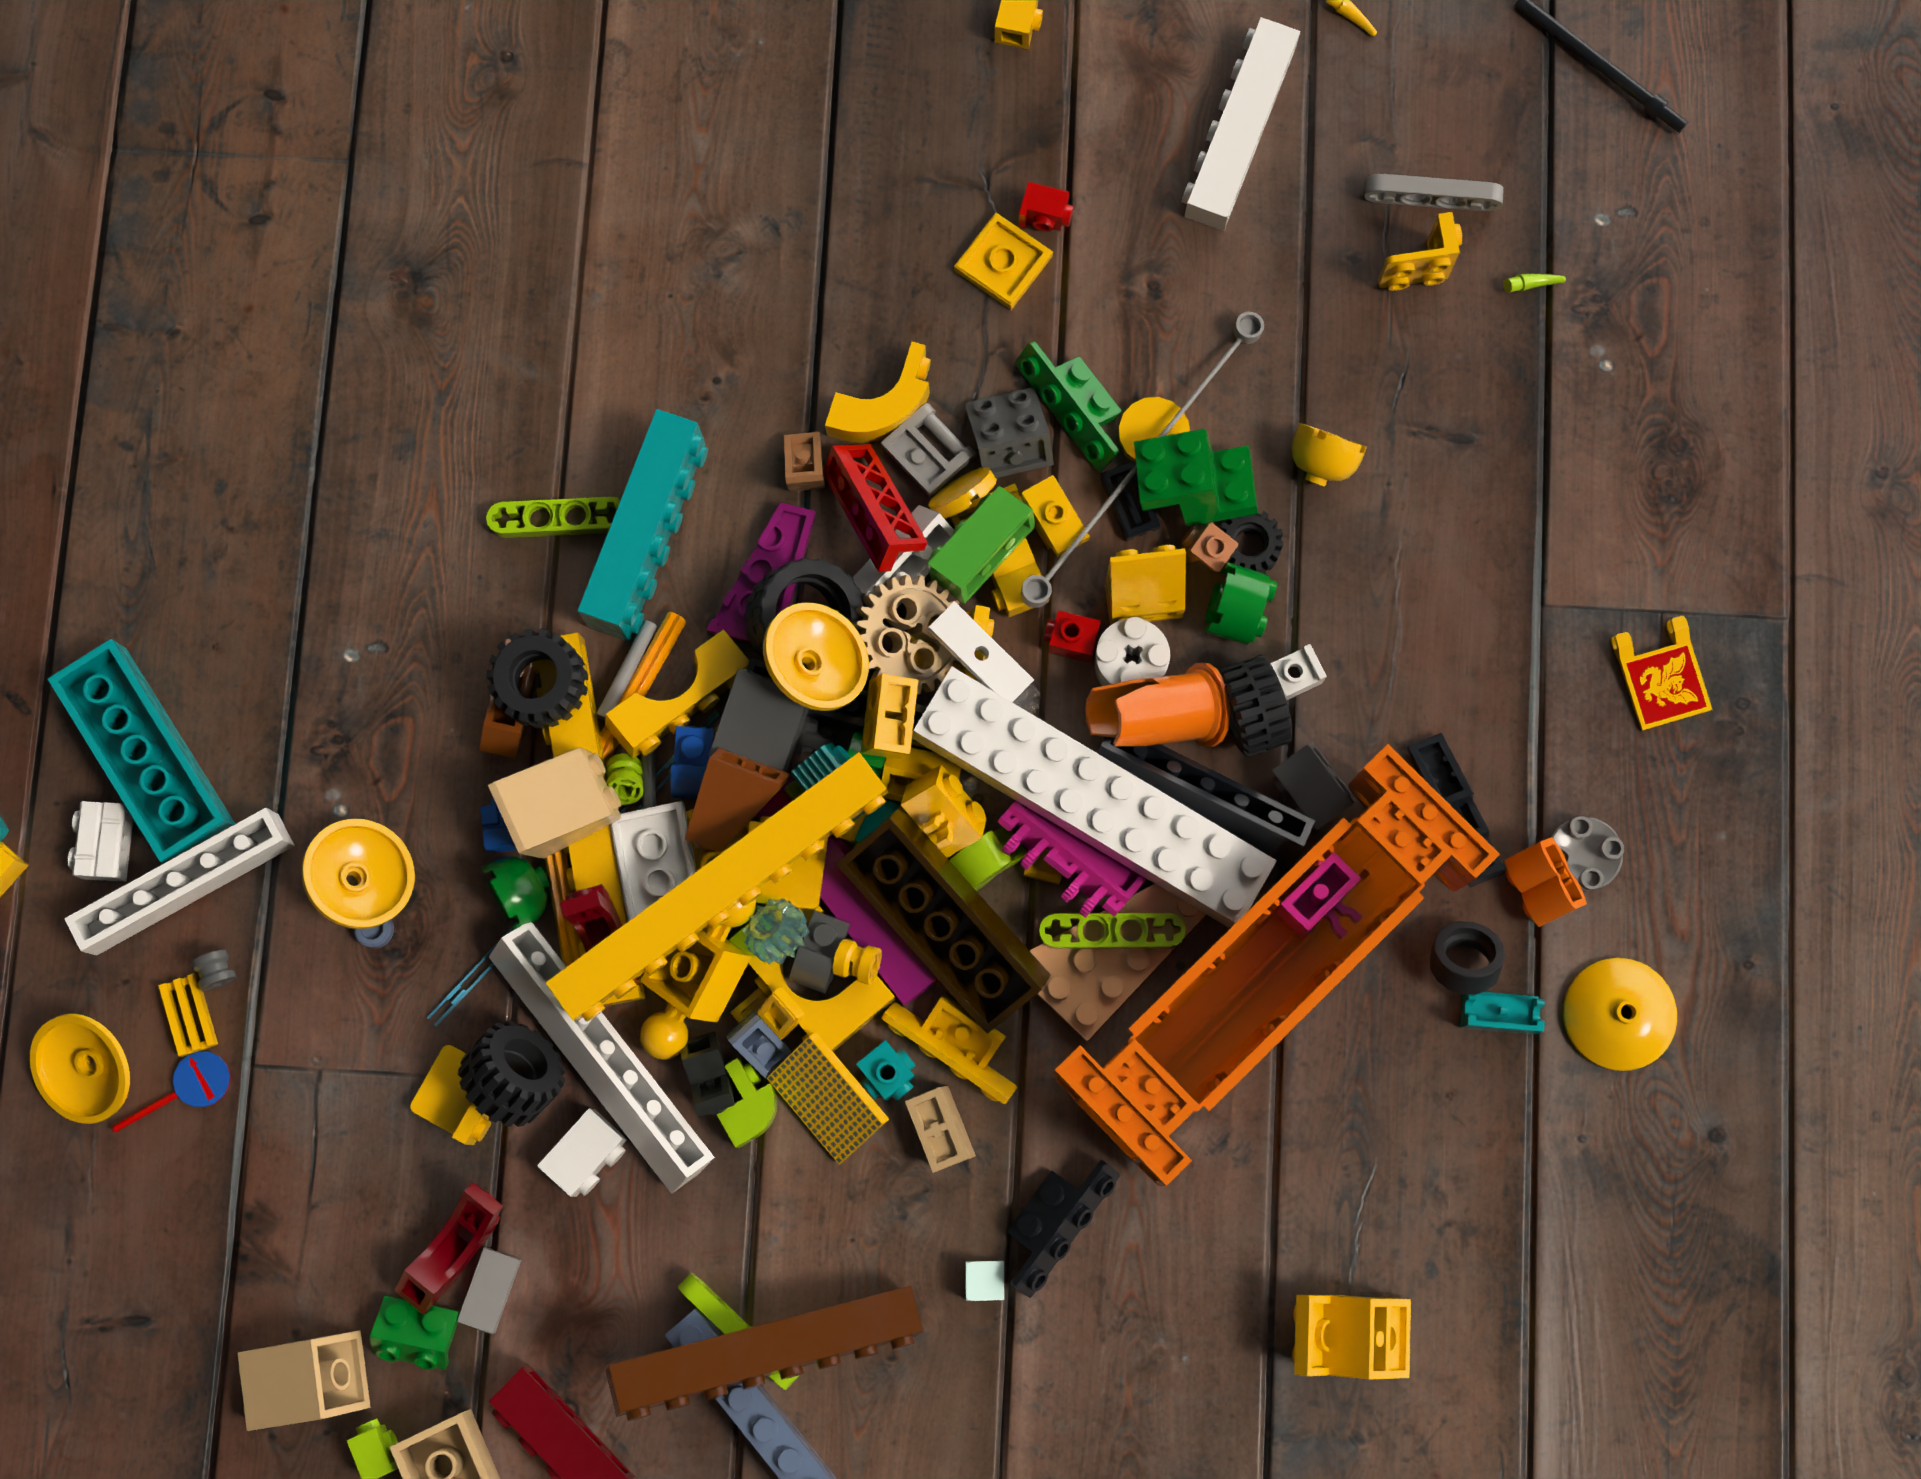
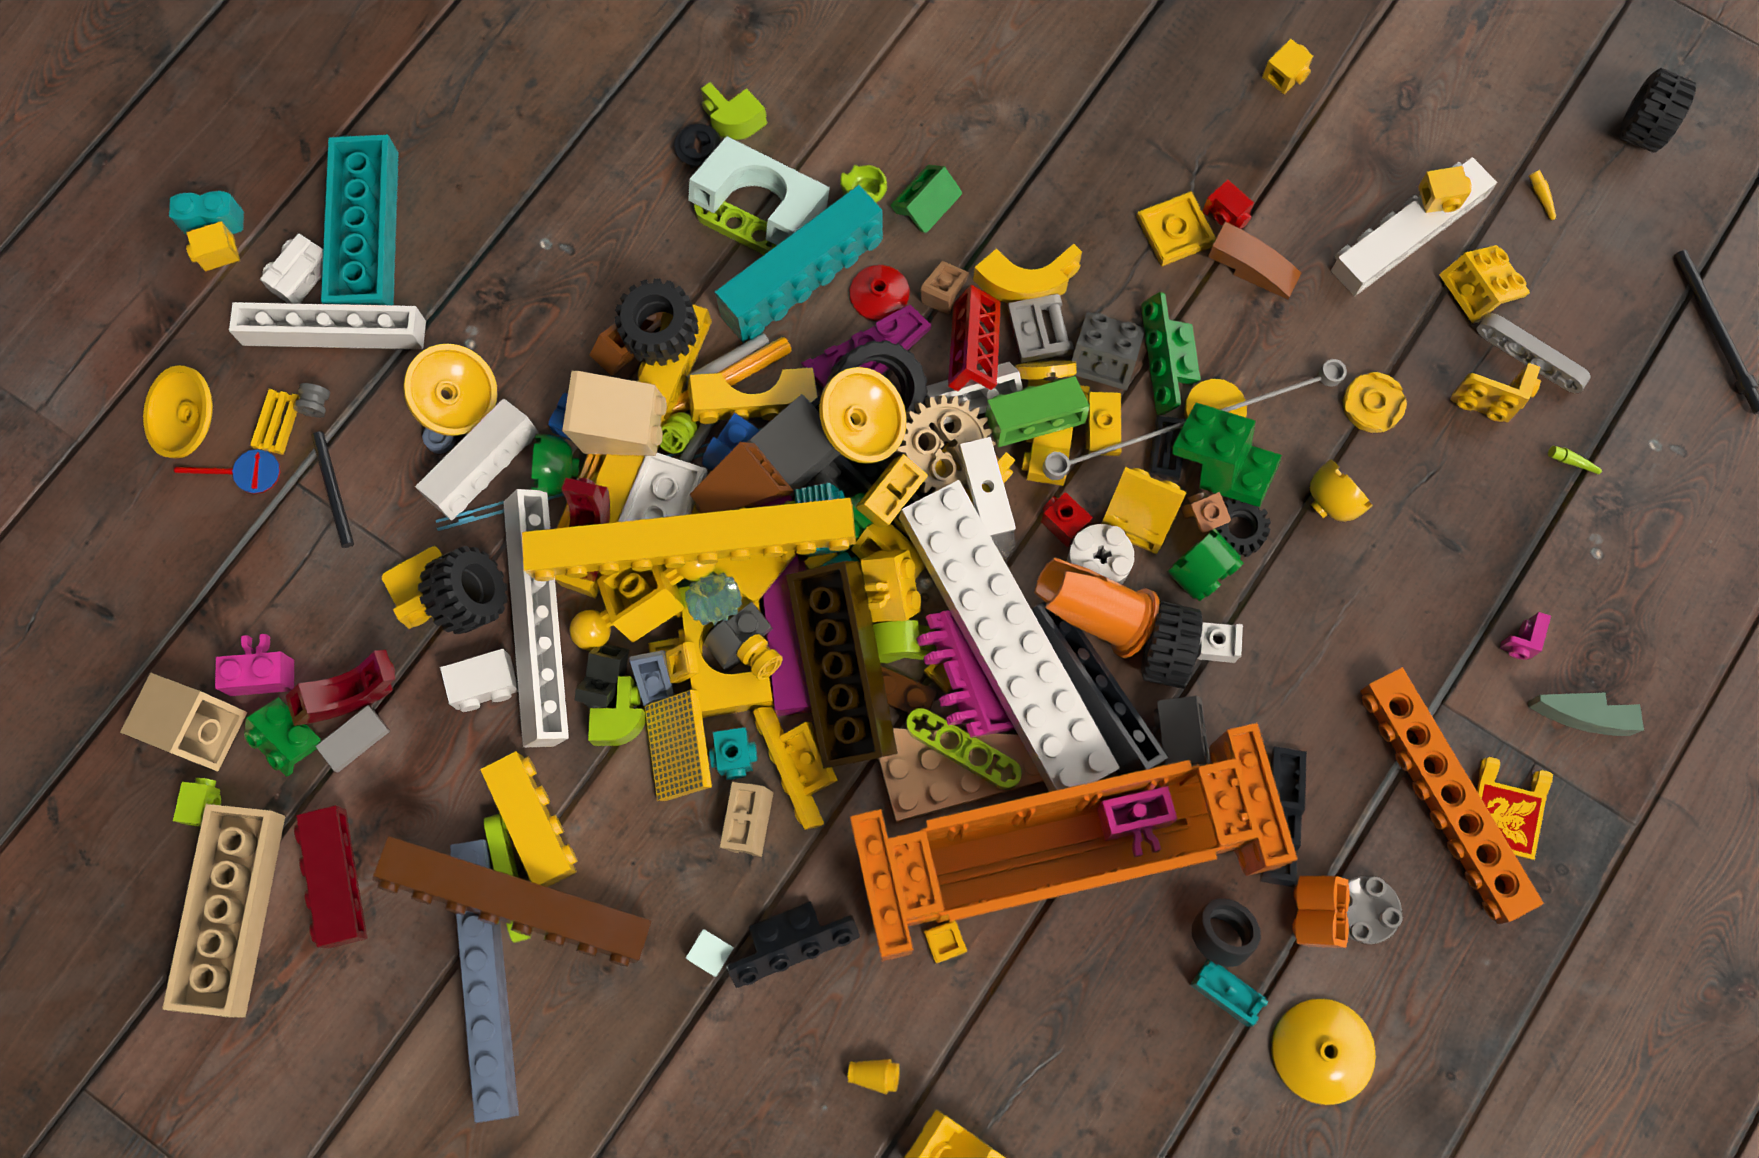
camera: 30 degrees right, 5 degrees down
(296, 1050) = (332, 490): none -> black bar
(345, 1285) = (255, 670): none -> dark pink brick
(433, 929) = (477, 459): none -> white brick
(450, 439) = (686, 142): none -> black gear
(470, 404) = (735, 118): none -> lime brick
(507, 454) = (737, 166): none -> light aqua arch
(652, 393) = (868, 177): none -> lime hair
(723, 1261) = (528, 819): none -> yellow brick
(726, 373) = (928, 197): none -> panel
(740, 522) = (879, 304): none -> red dish
(1022, 908) = (906, 693): none -> reddish brown hinge
(1104, 253) = (1254, 261): none -> slope
(1205, 1130) = (945, 941): none -> yellow tile
(1215, 1298) = (875, 1075): none -> yellow cone
(1254, 72) = (1444, 189): none -> yellow brick
(1306, 334) = (1374, 402): none -> yellow tile
(1344, 143) = (1483, 281): none -> yellow bracket
(1590, 485) = (1531, 640): none -> dark pink bracket
(1687, 534) = (1590, 713): none -> sand green slope
(1717, 753) = (1501, 862): none -> orange brick

